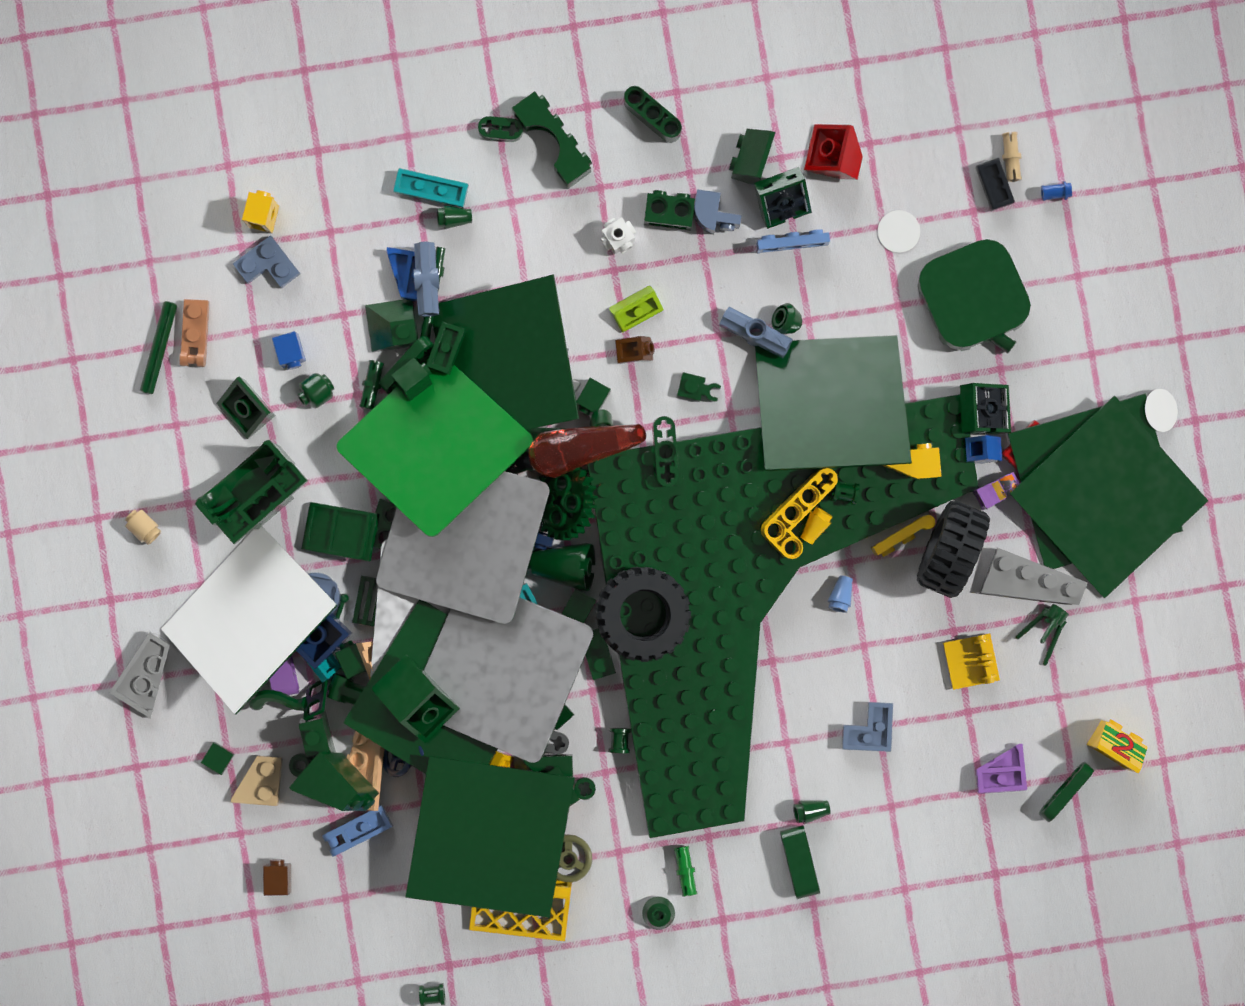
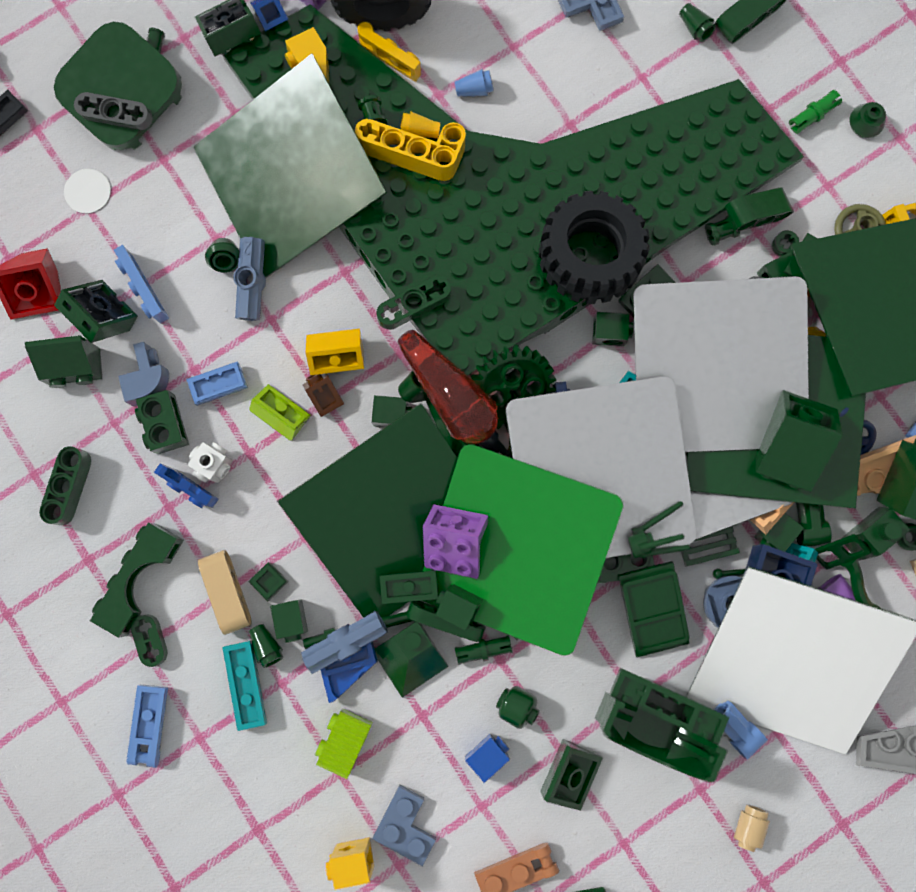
camera: 110 degrees left, 5 degrees down
(213, 554) = (742, 733): none -> medium blue piece
(351, 246) = (344, 742): none -> lime brick
(392, 541) = (643, 544): none -> dark green plant
(436, 101) = (147, 725): none -> medium blue plate
(464, 244) = (289, 620): none -> dark green brick
(464, 397) = (453, 540): none -> medium lavender bracket
(503, 241) = (268, 581): none -> dark green tile
(510, 203) = (224, 592): none -> tan beam
(565, 565) = (575, 357): dark green cone -> none
(609, 208) = (180, 482): none -> blue wing
(620, 776) = (759, 209): none -> dark green beam
(662, 374) = (334, 351): none -> yellow brick
(681, 268) = (217, 383): none -> medium blue plate
(693, 388) = (334, 316): dark green plate -> none
(964, 271) = (105, 102): none -> dark grey beam

